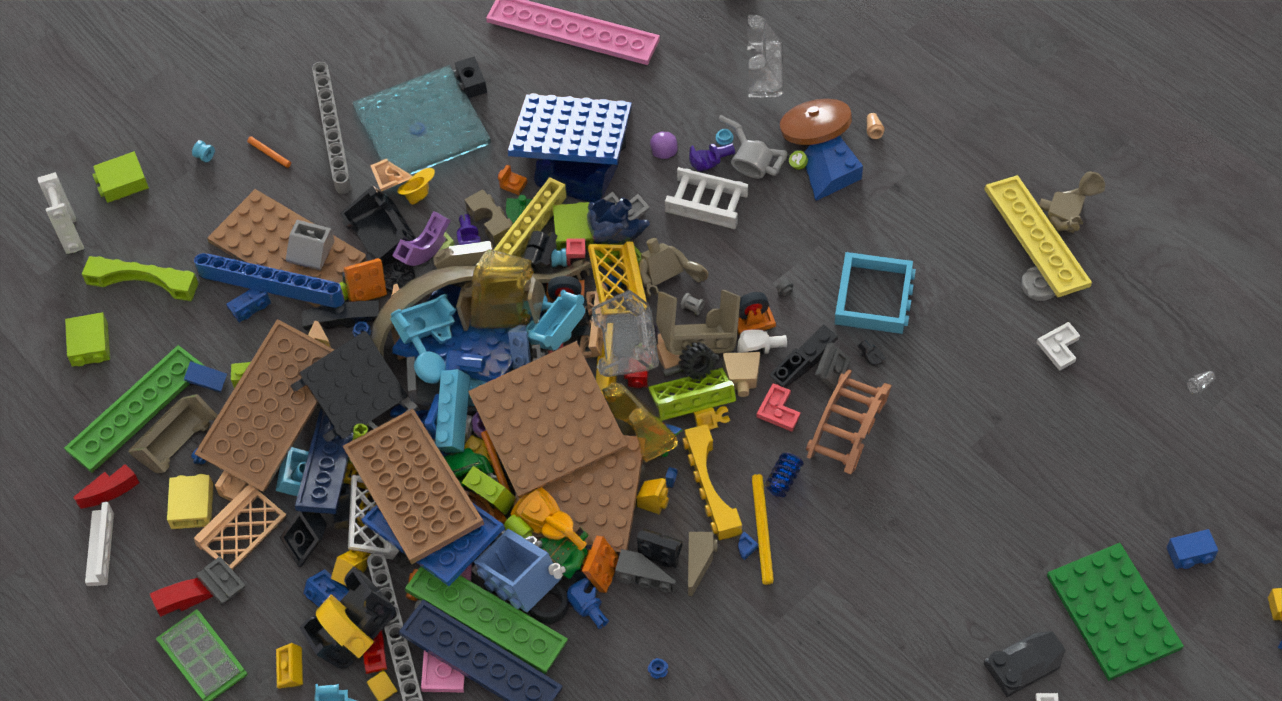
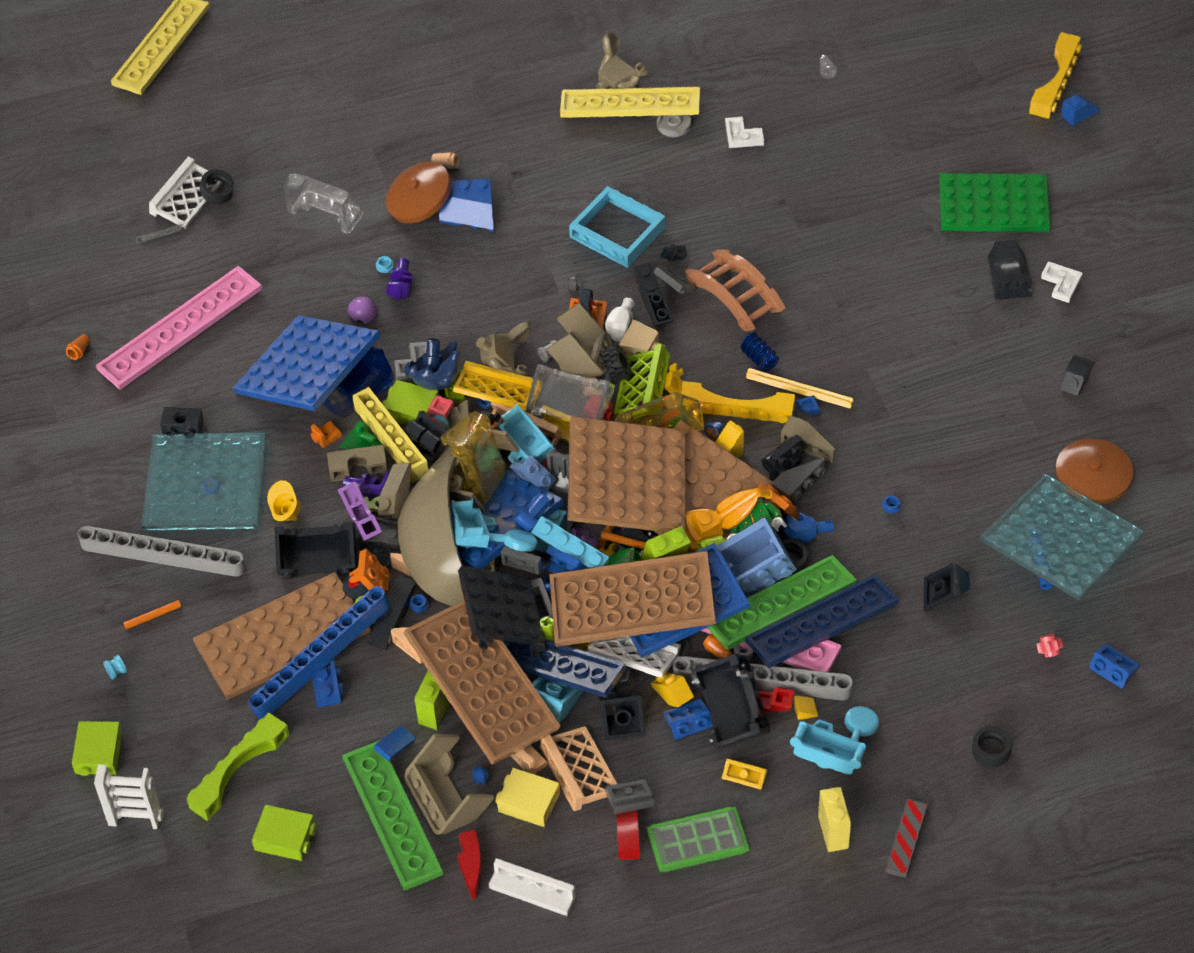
camera: 65 degrees left, 5 degrees down
(309, 244) = (303, 604): light grey slope -> none
(341, 628) = (737, 704): yellow arch -> none
(389, 174) = (258, 523): light nougat slope -> none
(702, 212) = (447, 314): white fence -> none
(754, 156) = (421, 250): light grey piece -> none
(775, 412) = (690, 336): coral plate -> none
(798, 160) = (446, 223): lime tile -> none
(1192, 549) = (969, 134): blue brick -> none

